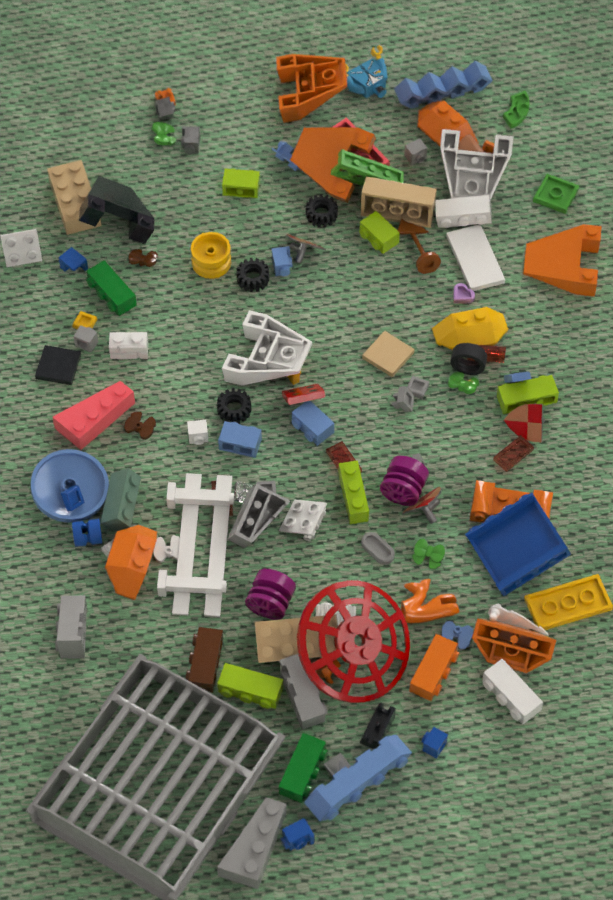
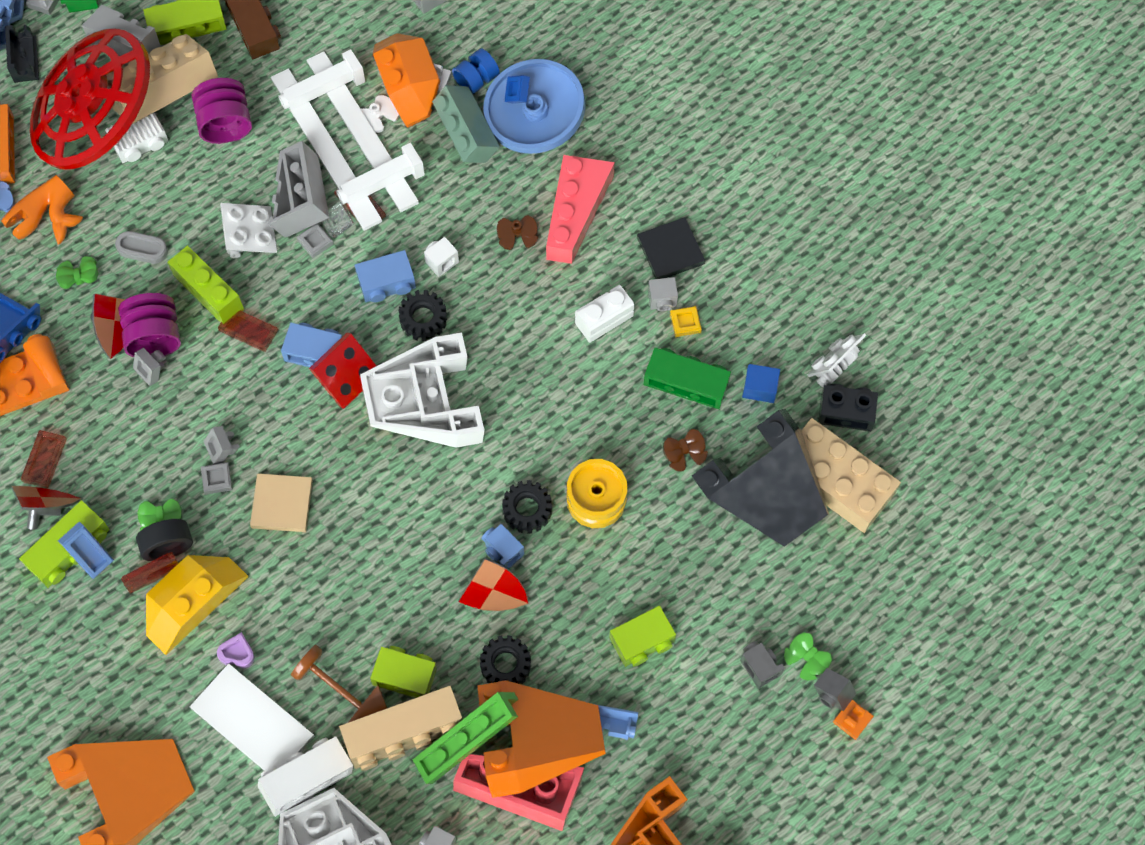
camera: 145 degrees right, 10 degrees up
(35, 219) = (848, 407): none -> black brick

